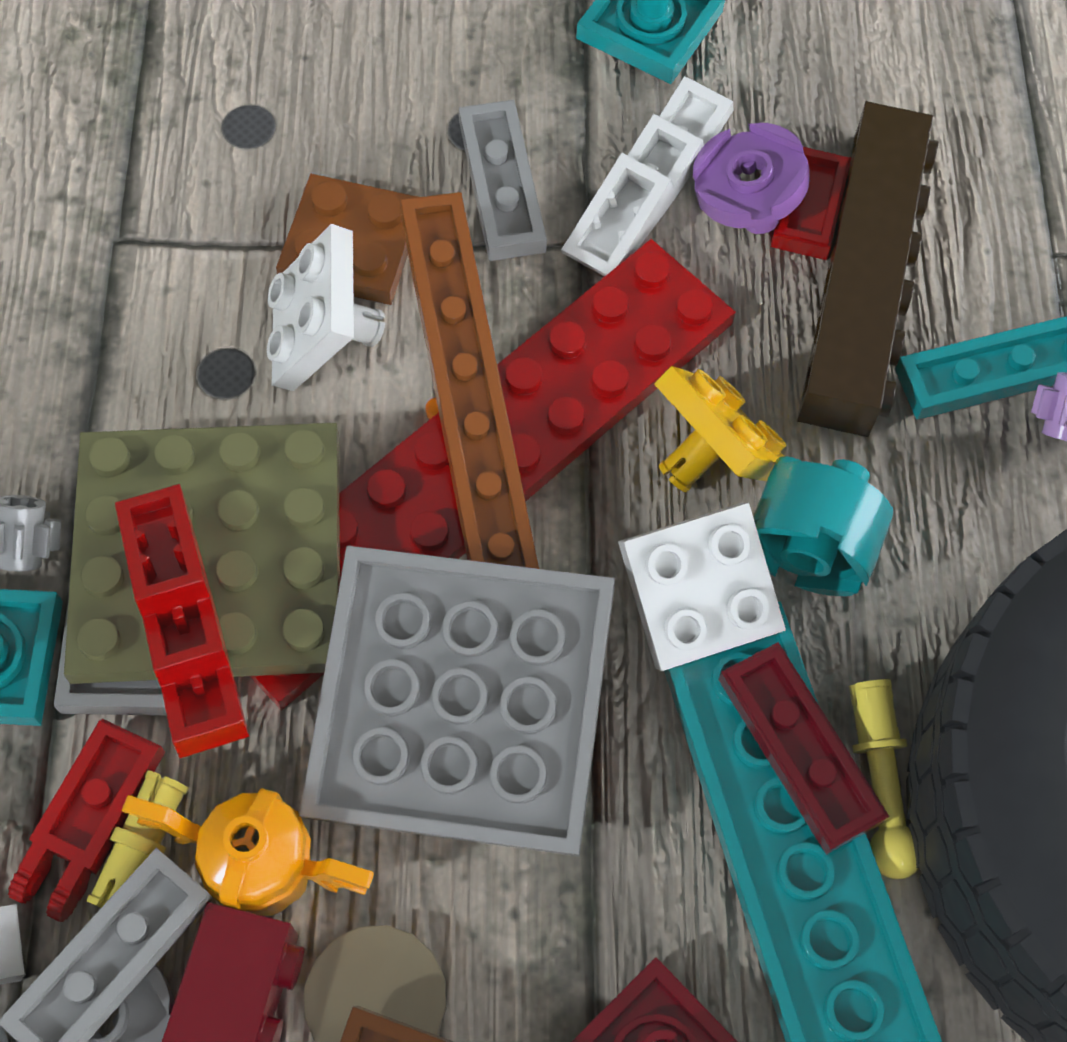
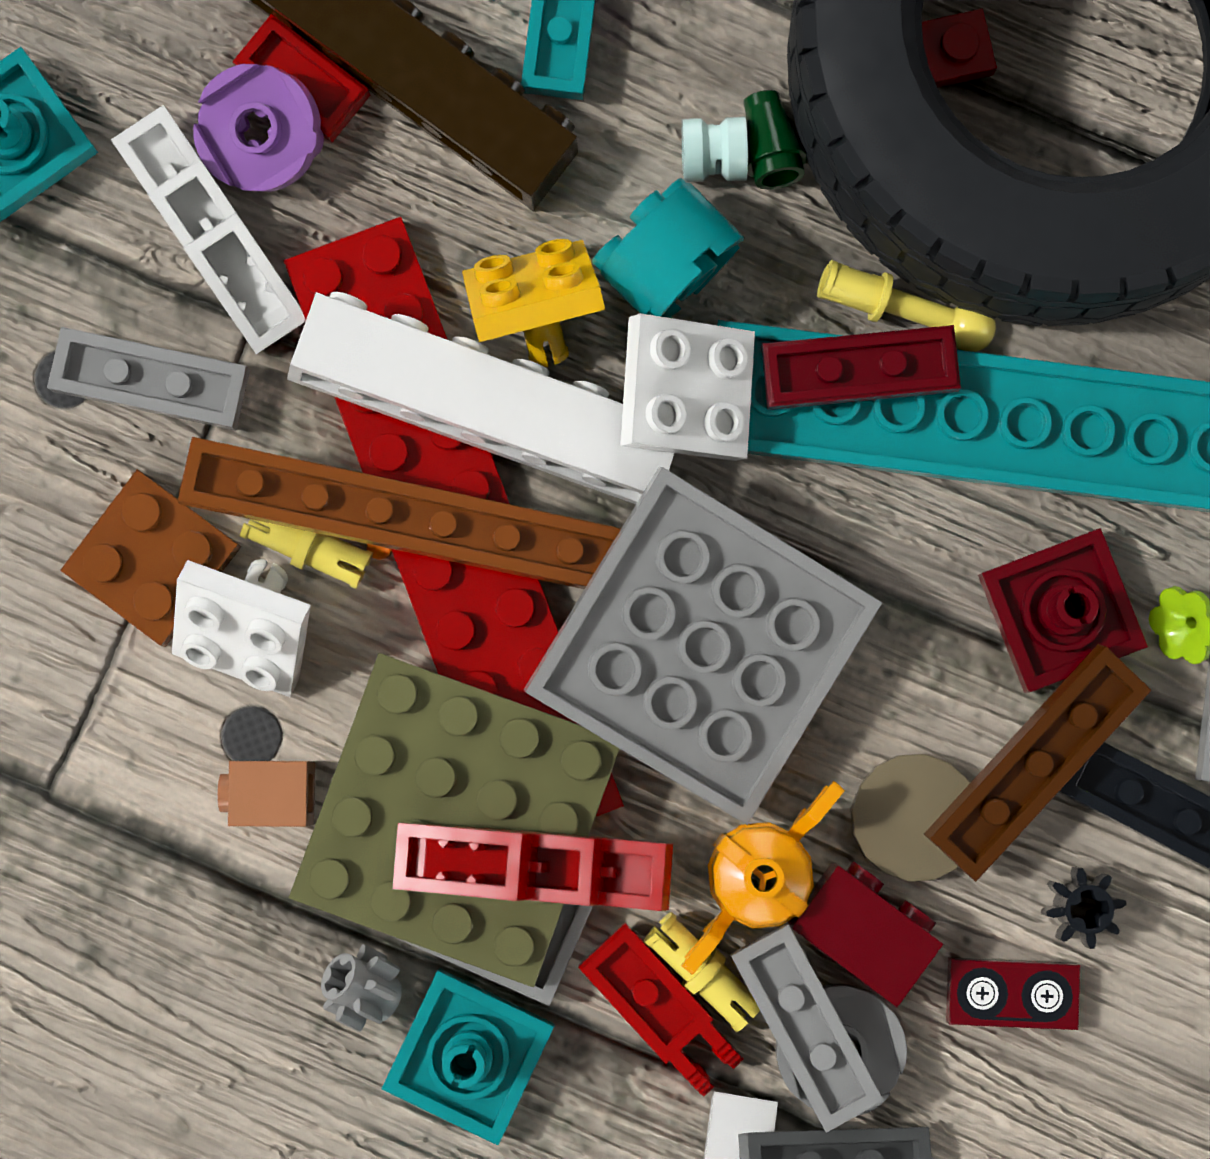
camera: 60 degrees left, 20 degrees up
(175, 388) = (268, 793): none -> nougat brick
(410, 353) = (312, 549): none -> light yellow pin
(604, 405) = (470, 395): none -> white brick
(934, 538) = (714, 149): none -> light aqua wheel
(962, 589) = (773, 145): none -> dark green cone

